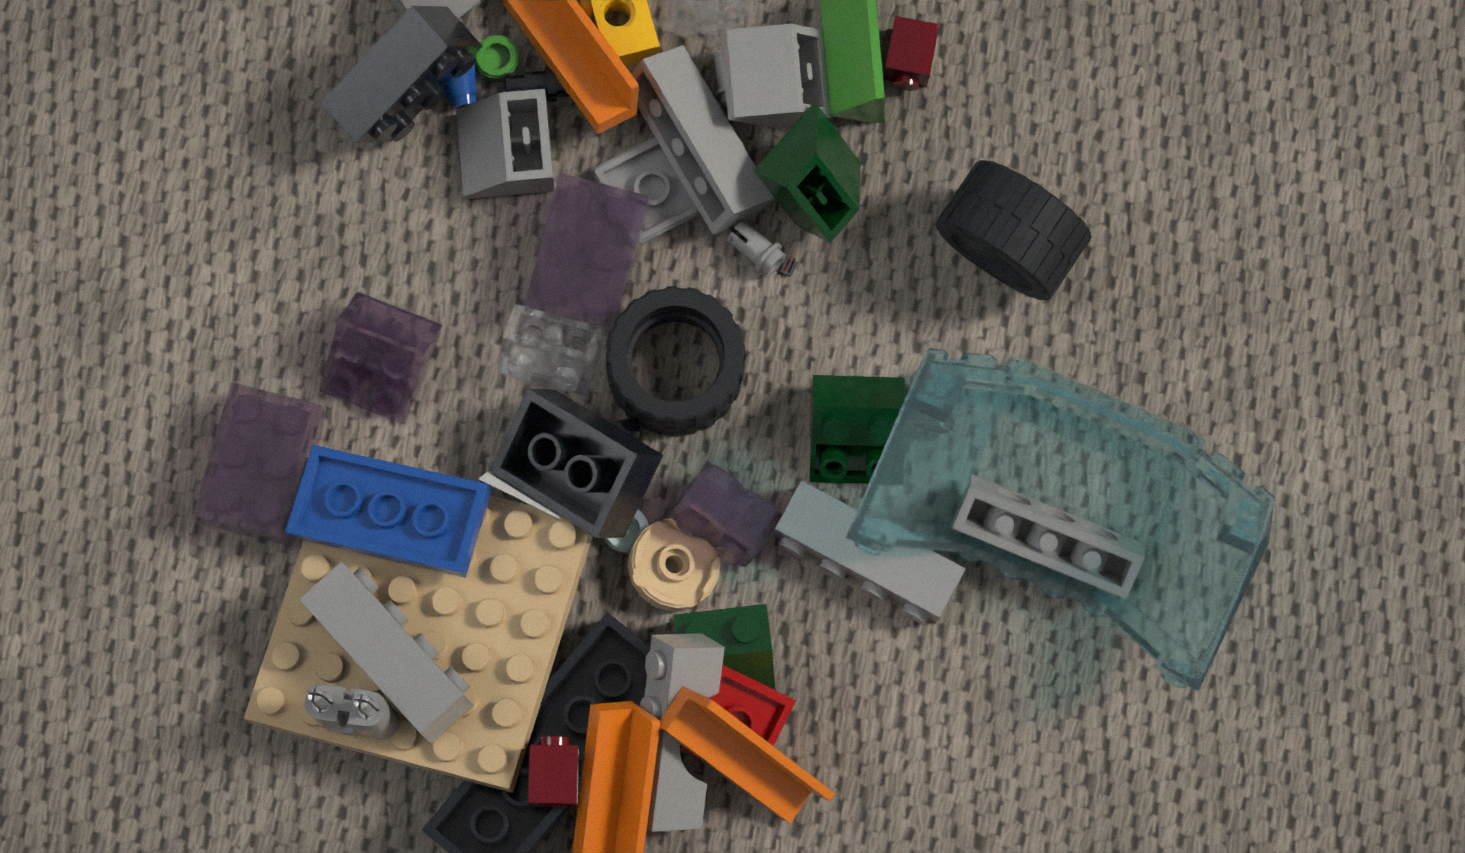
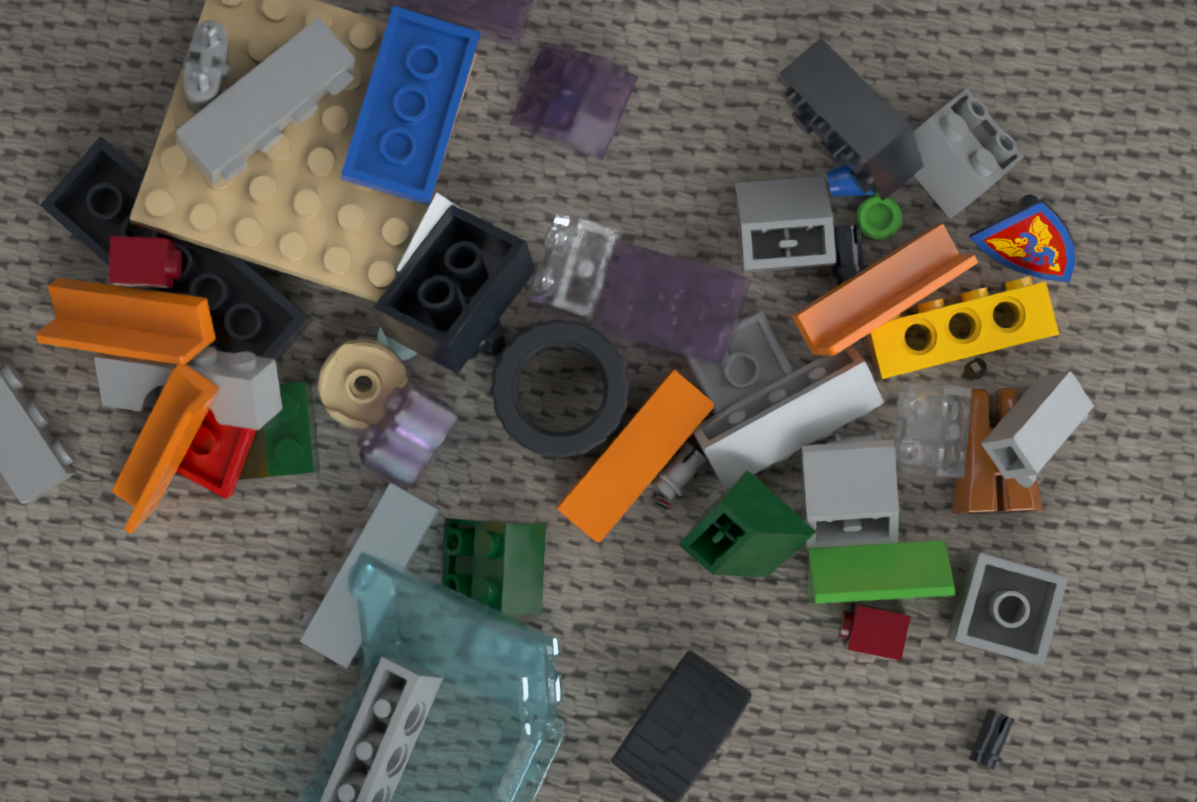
camera: 100 degrees right, 10 degrees up
(754, 295) = (635, 456): none -> orange panel

